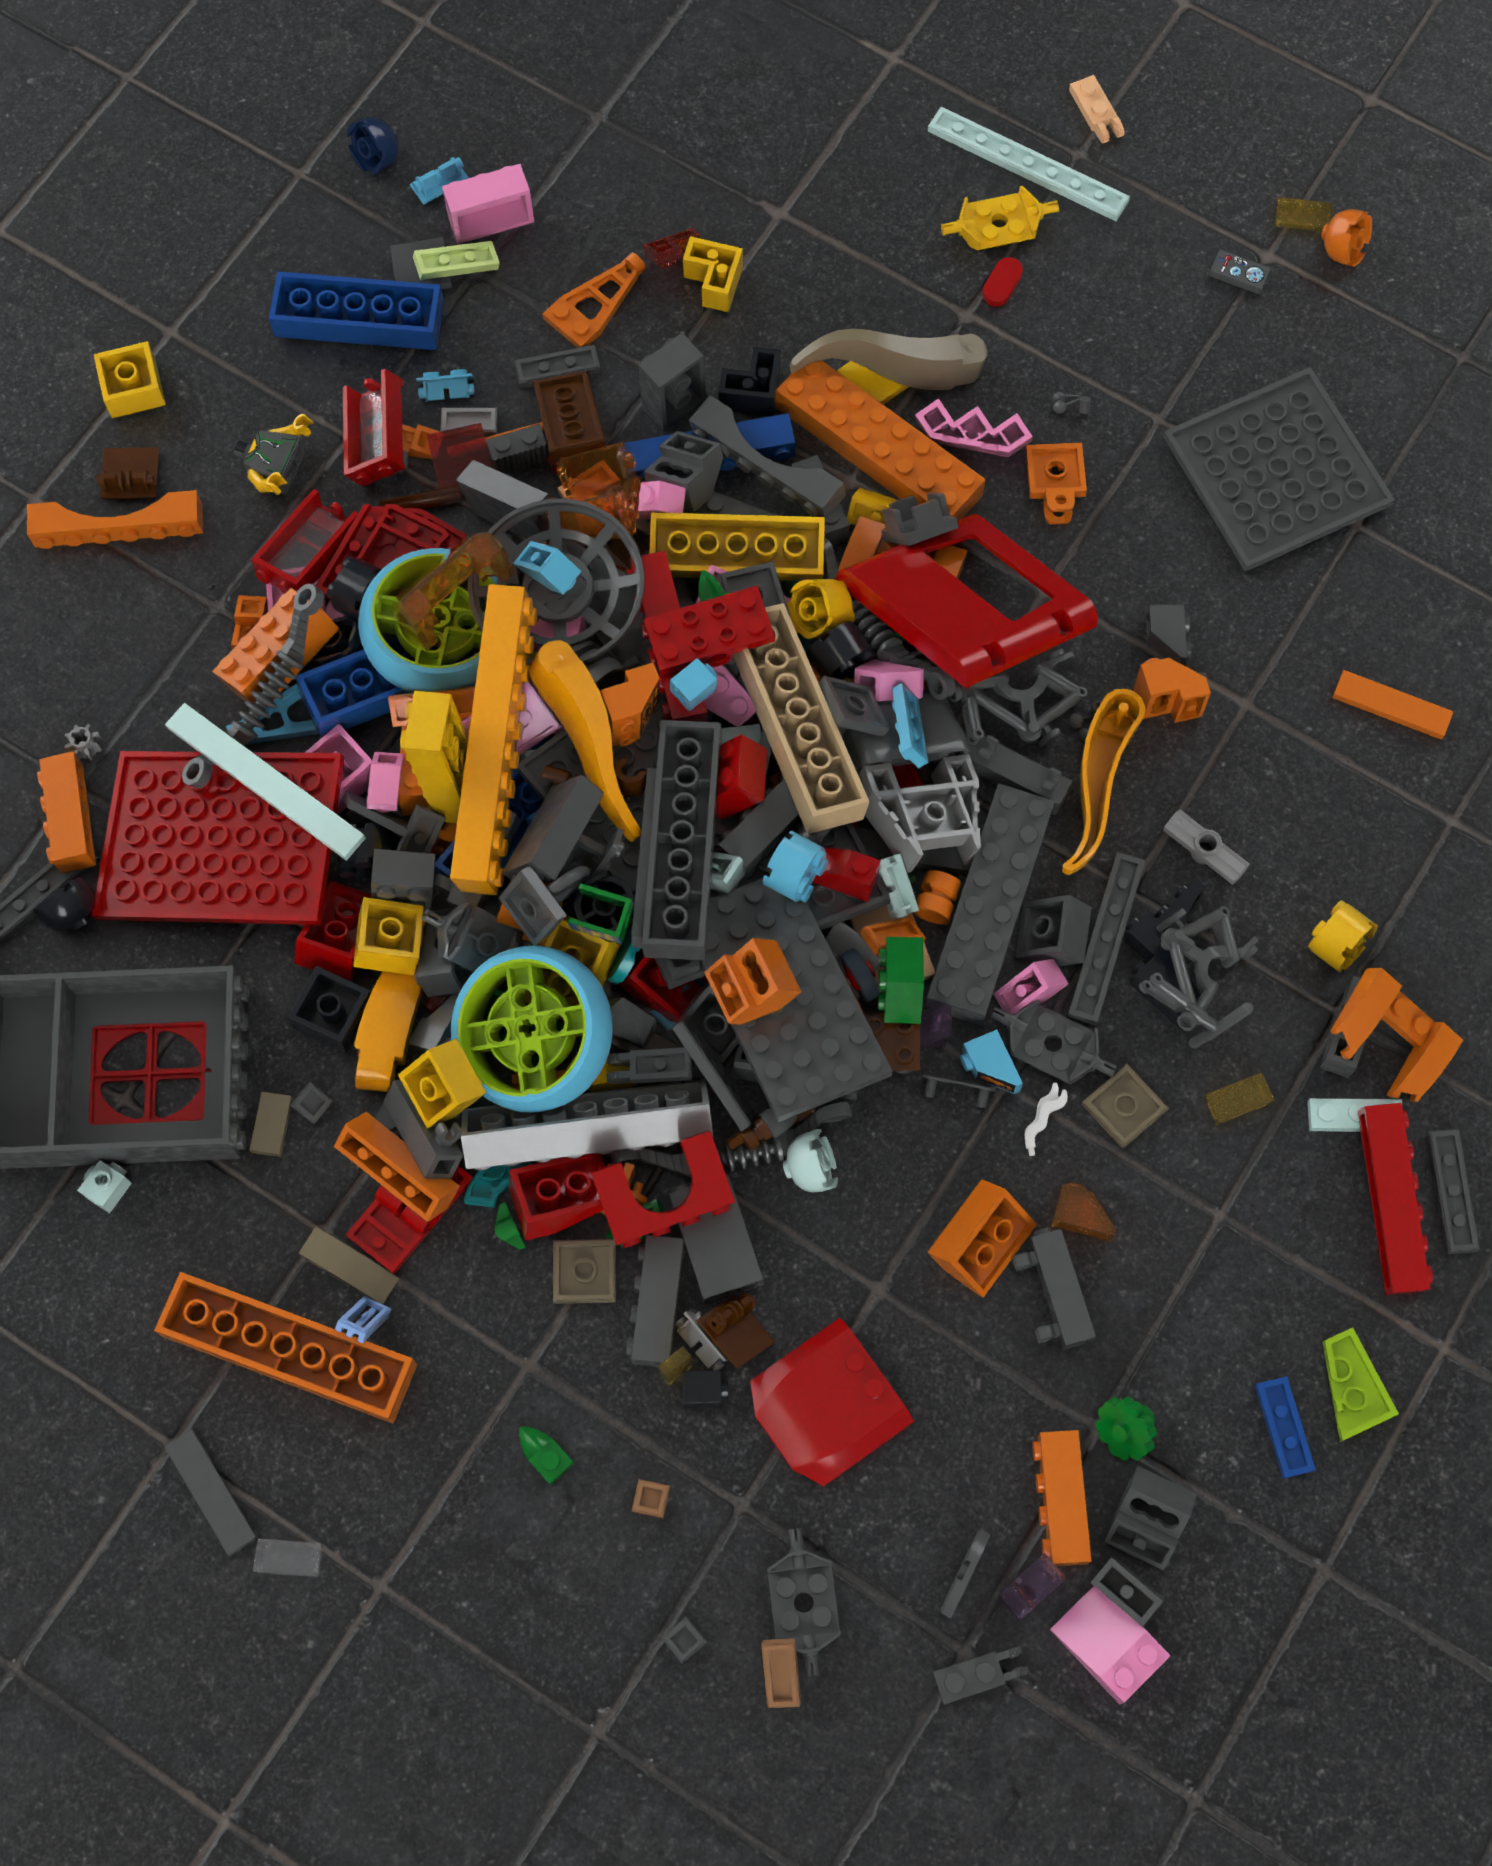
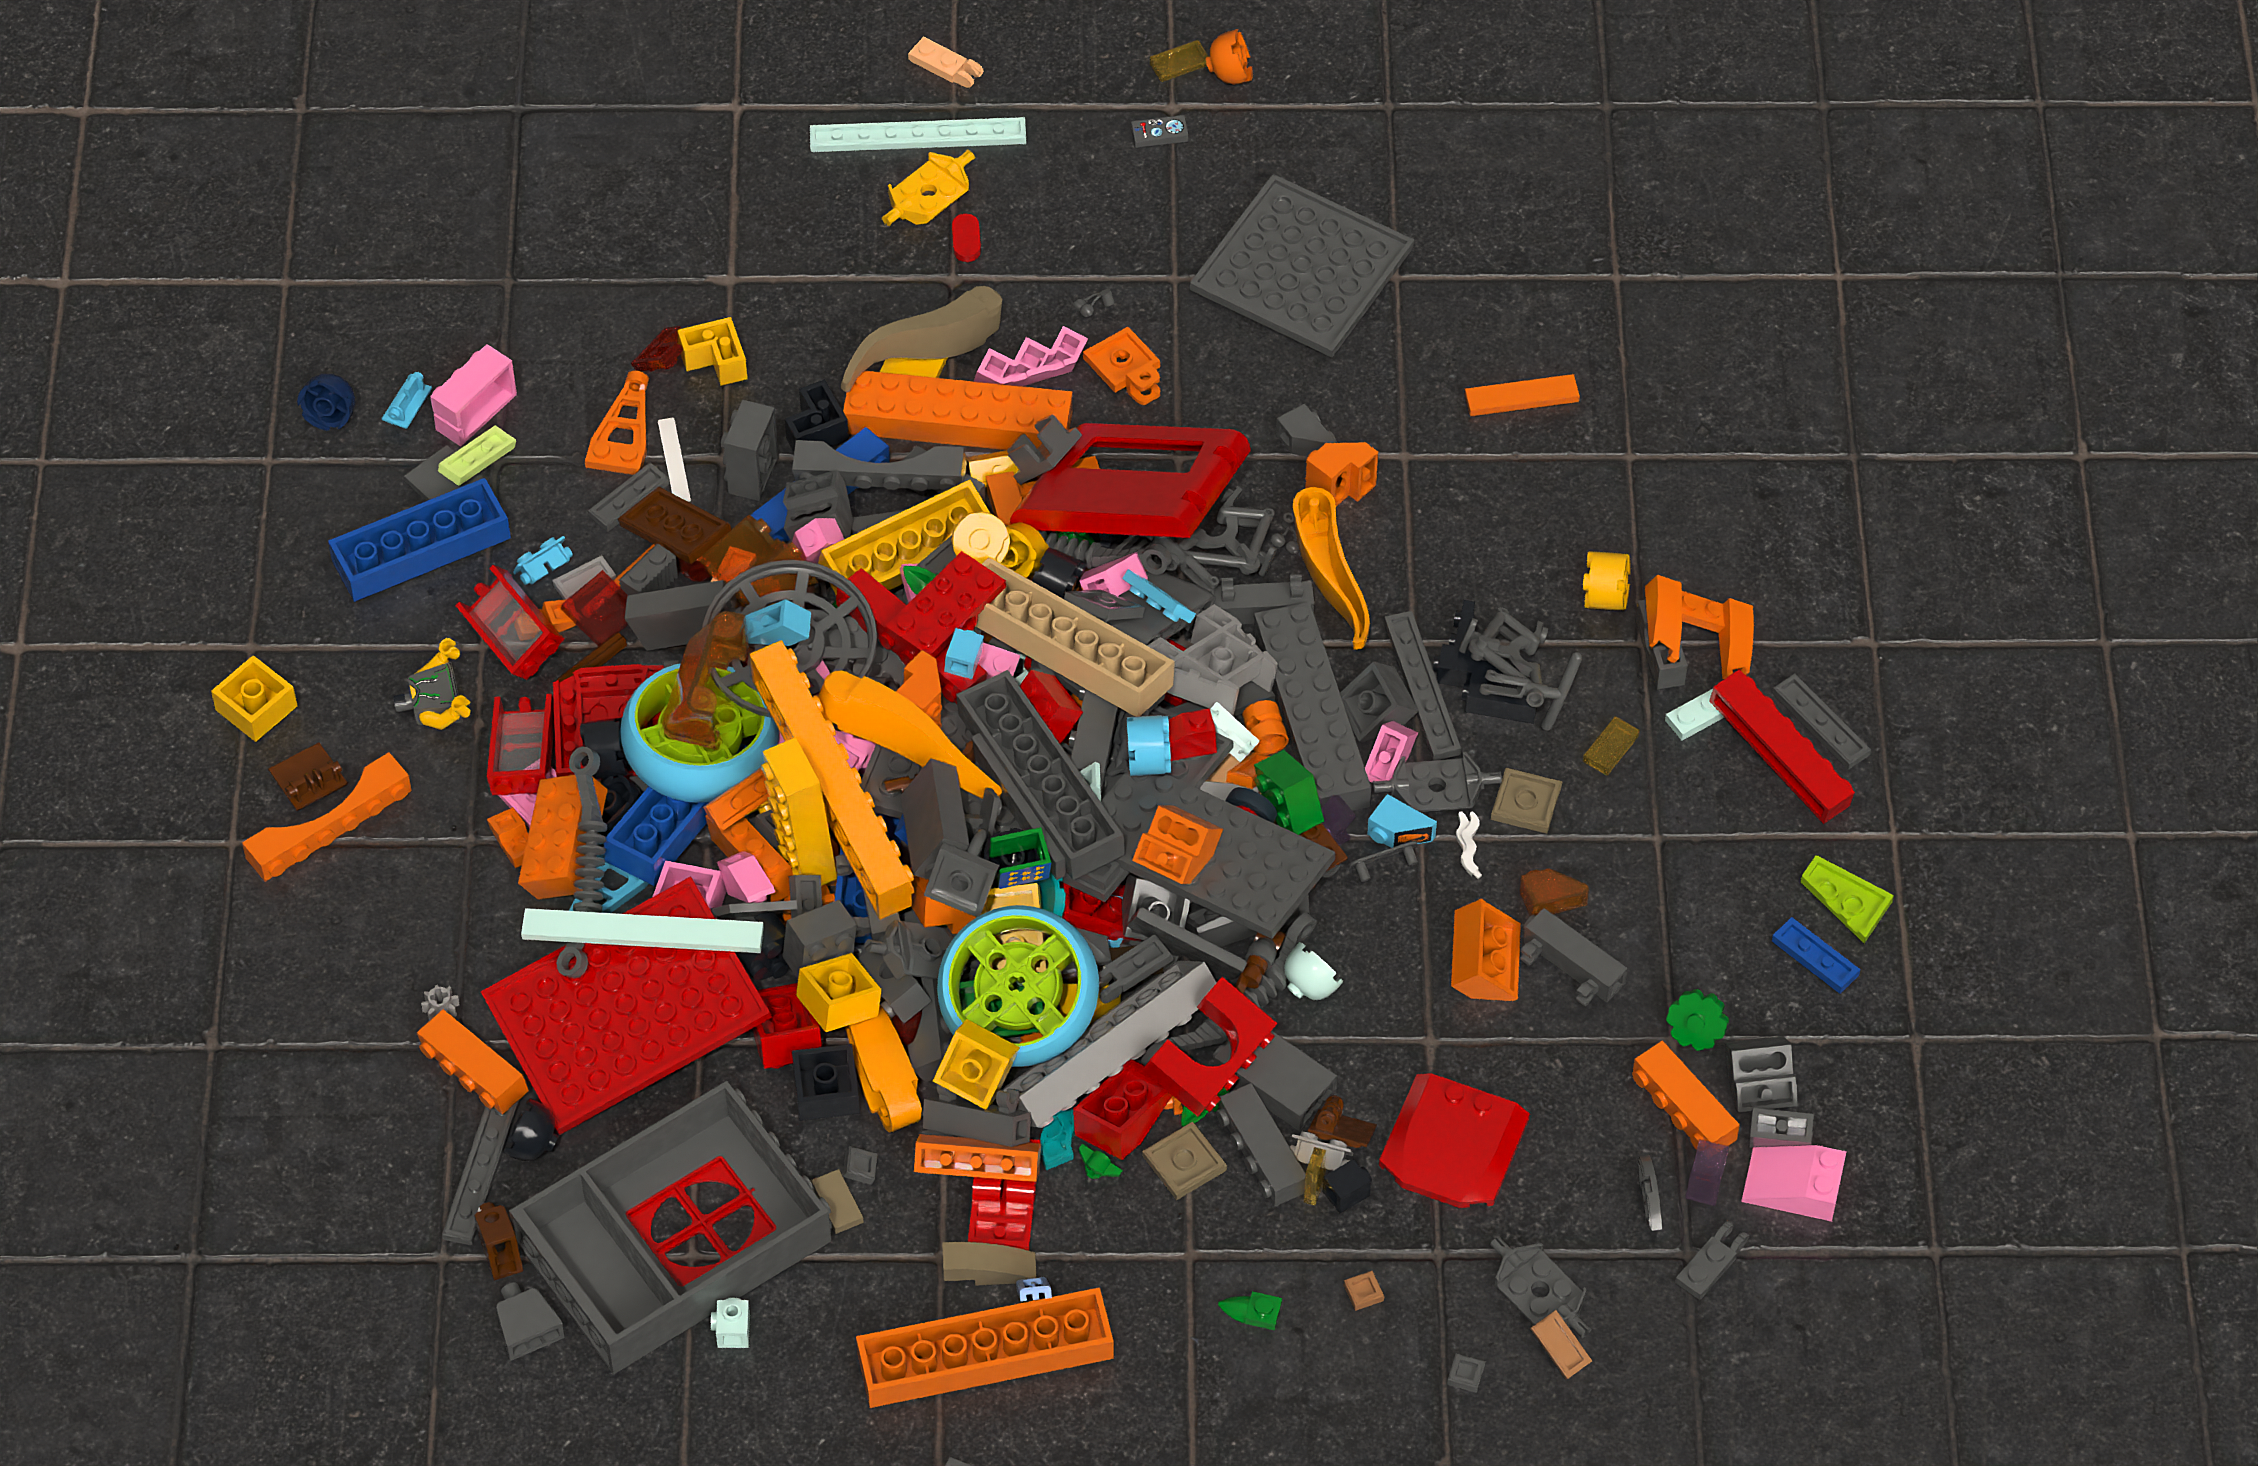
camera: 35 degrees left, 15 degrees down
(618, 354) = (674, 458): none -> white sticker
(788, 580) = (981, 537): none -> yellow tile
(1191, 835) = (1452, 575): light grey piece -> none

